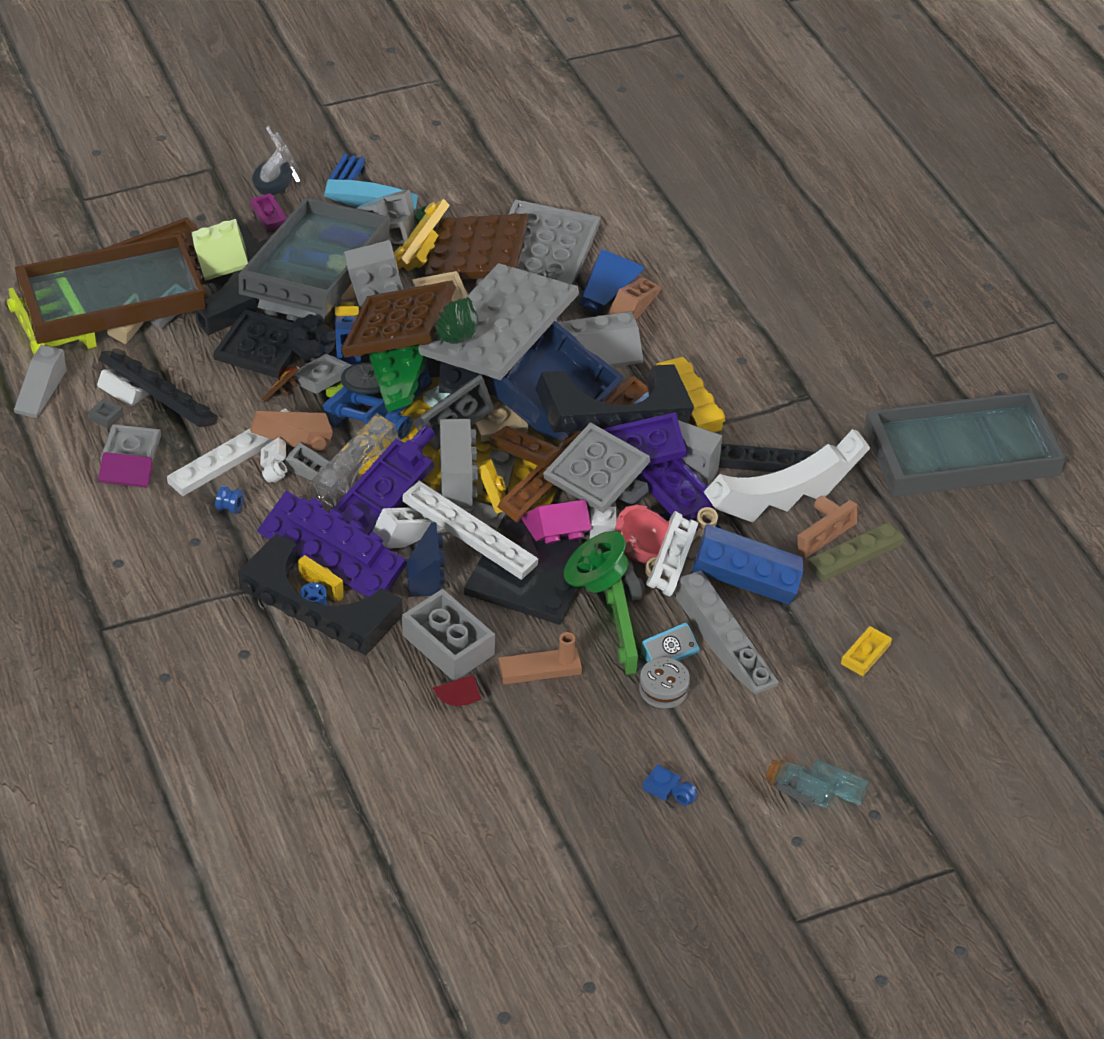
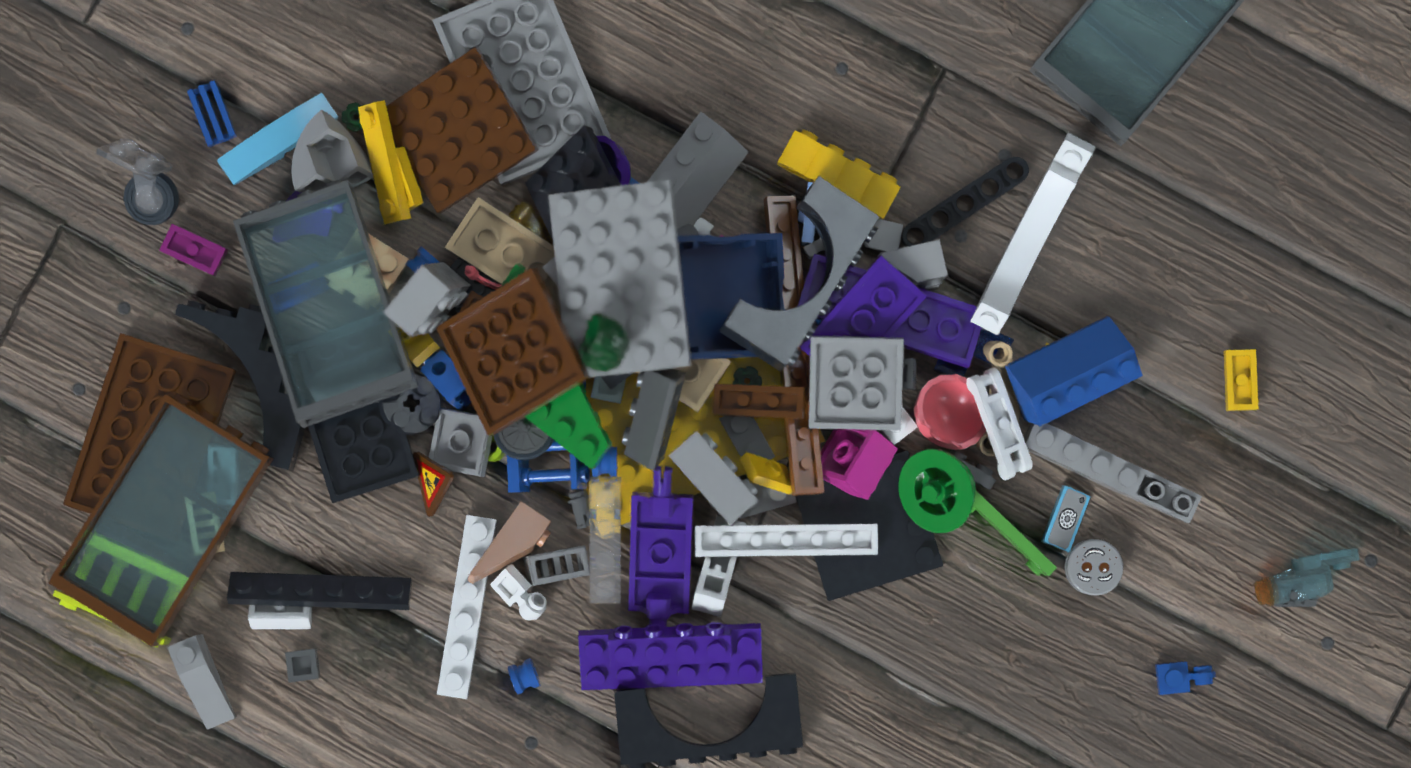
camera: 30 degrees left, 40 degrees up
(125, 469) = (391, 719): magenta slope -> none
(132, 441) = (364, 682): light grey tile -> none
(220, 249) = (218, 370): yellowish green slope -> none
(313, 572) = (694, 700): yellow plate -> none
(314, 592) = (703, 730): blue wheel -> none
(425, 563) = (778, 615): dark blue slope -> none
(448, 634) = (869, 677): light grey brick -> none
(459, 692) = (923, 726): dark red brick -> none
(542, 664) = (966, 633): nougat piece -> none
(606, 278) = (635, 78): blue slope -> none
(635, 297) = (677, 73): nougat slope -> none
(837, 521) = (1099, 223): nougat piece -> none
(855, 551) = (1141, 254): olive plate -> none

